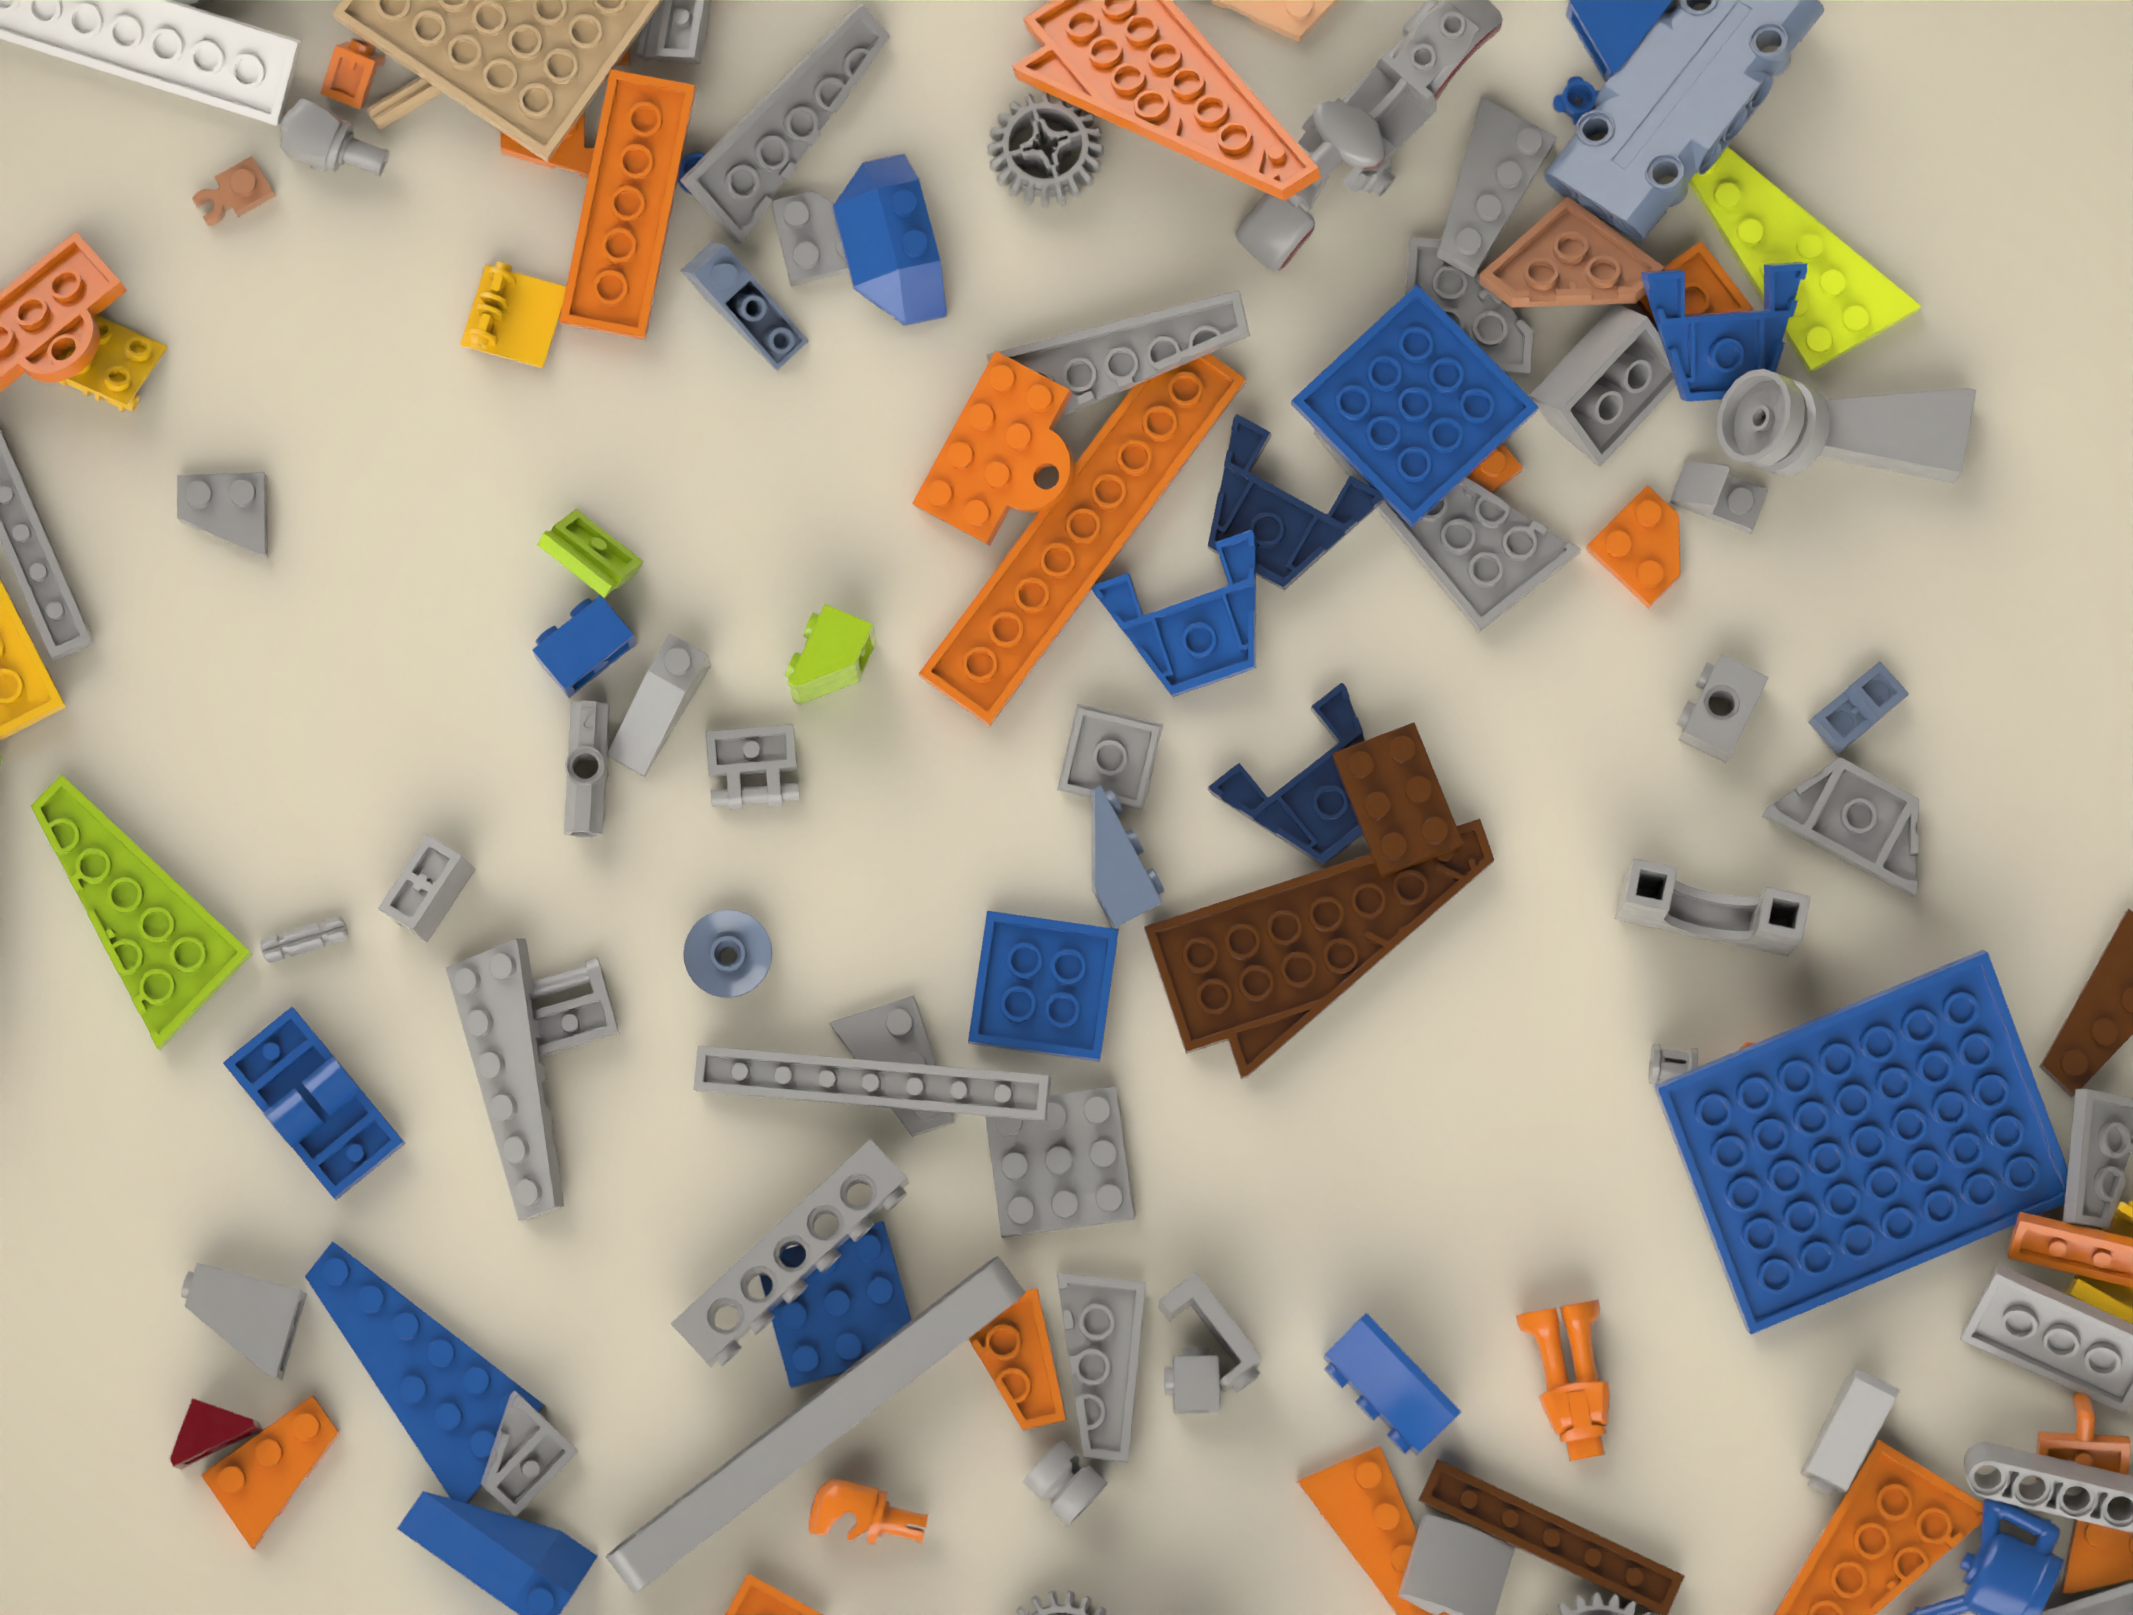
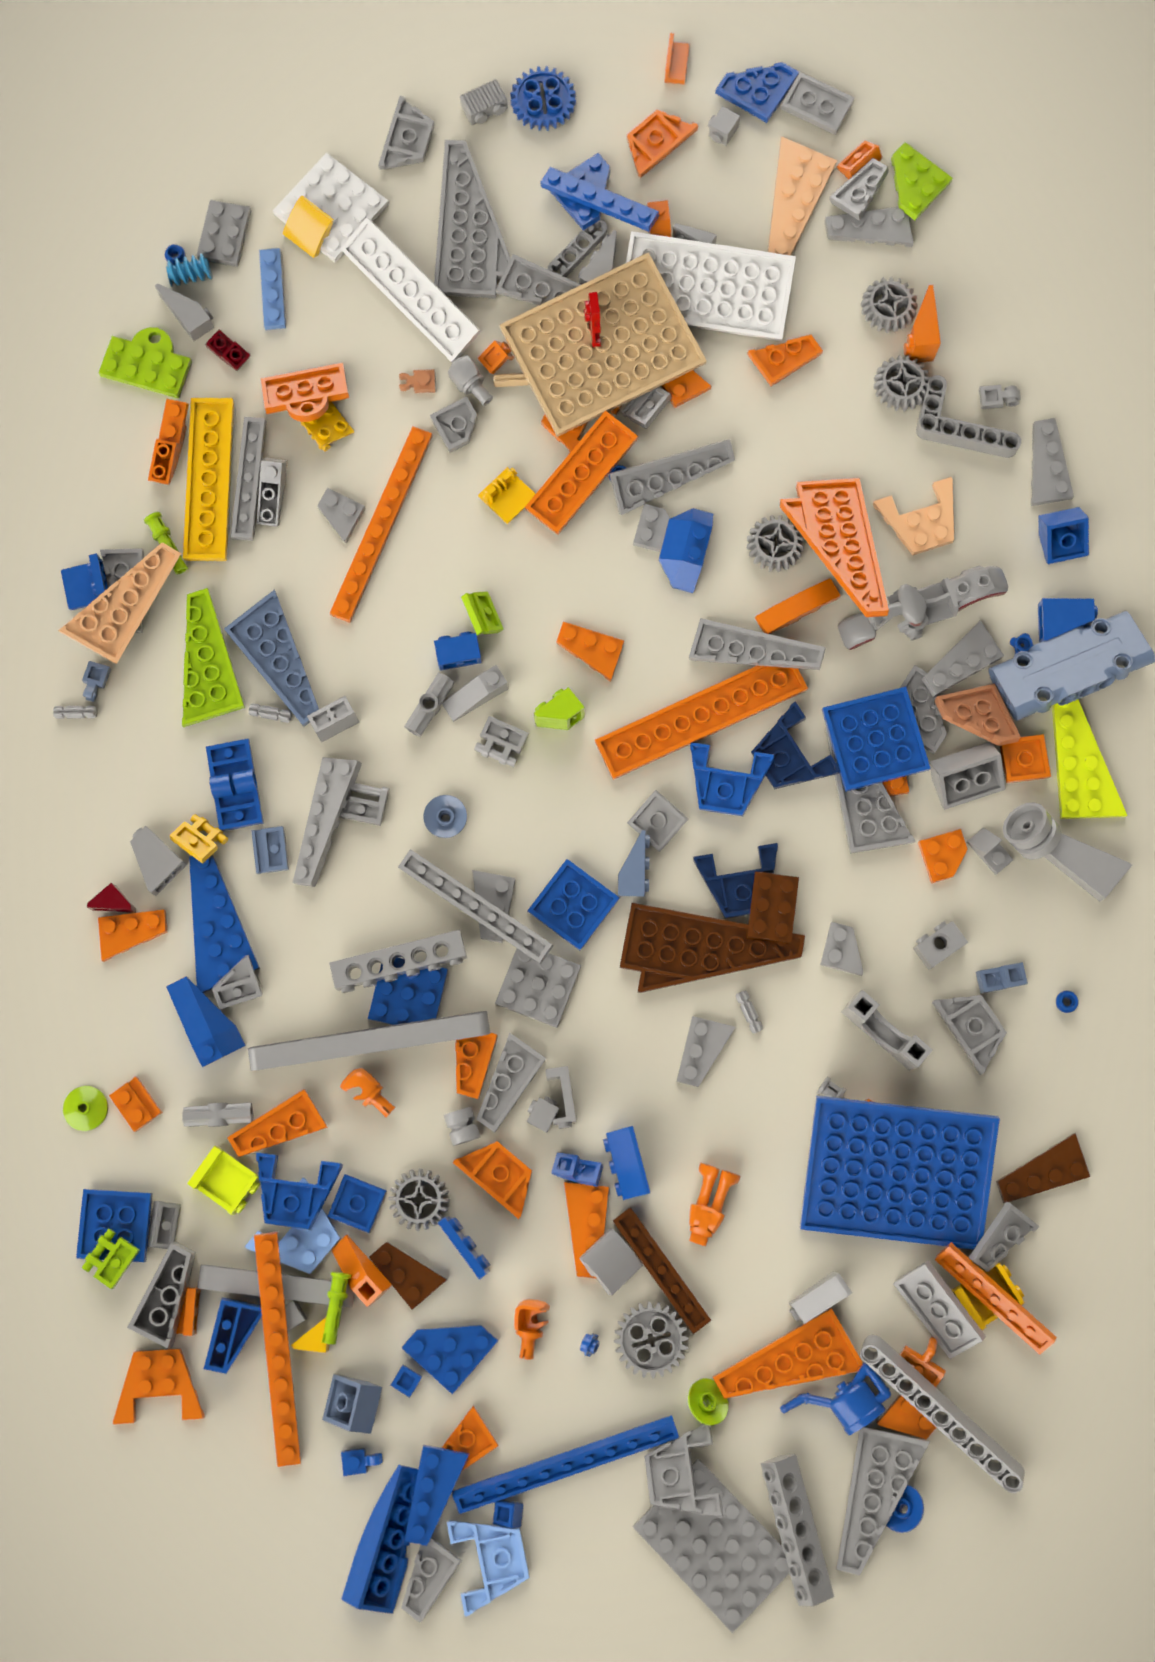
camera: 30 degrees right, 0 degrees up
(78, 536) = (271, 490): none -> light grey slope
(237, 820) = (269, 646): none -> sand blue wing
(304, 1244) = (194, 842): none -> yellow plate
(313, 490) = (381, 524): none -> orange plate
(346, 235) = (455, 423): none -> light grey plate
(445, 1184) = (270, 850): none -> sand blue plate
(744, 304) = (608, 542): sand blue slope -> none
(820, 510) = (593, 648): none -> orange wing
(999, 451) = (682, 663): orange plate -> none
(1147, 242) = (797, 606): none -> orange slope
(1176, 1531) = (499, 1175): none -> orange wing
(1307, 1448) = (577, 1170): none -> blue slope
(1408, 1117) = (701, 1049): none -> light grey wing
(1455, 1006) = (749, 1011): none -> light grey axle
(1557, 810) = (842, 950): none -> light grey wing
(1718, 348) = (1025, 785): blue wing -> none
(2001, 679) = (1072, 998): none -> blue plate

